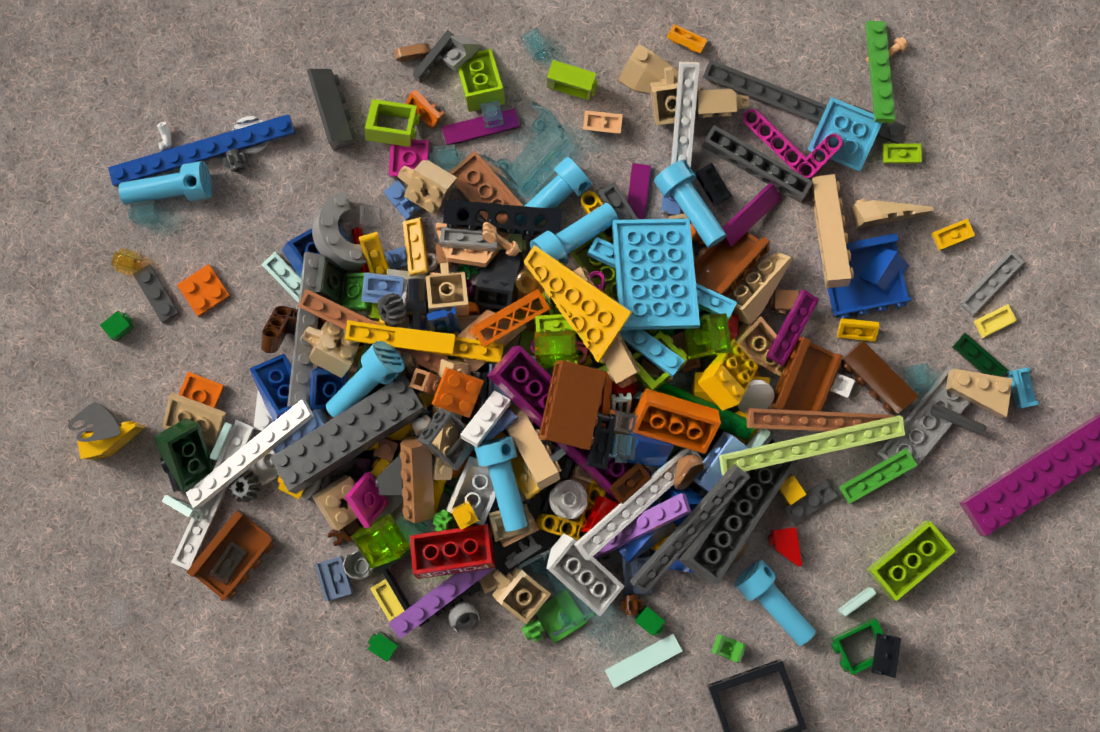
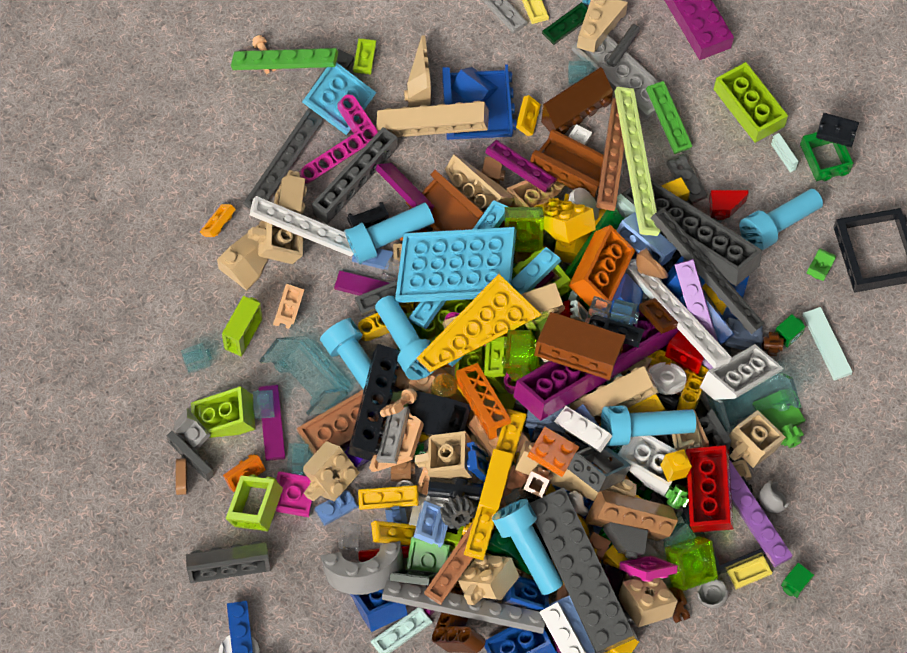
camera: 80 degrees left, 20 degrees down
(333, 579) = (723, 621): sand blue plate -> none
(953, 234) = (448, 26): yellow plate -> none

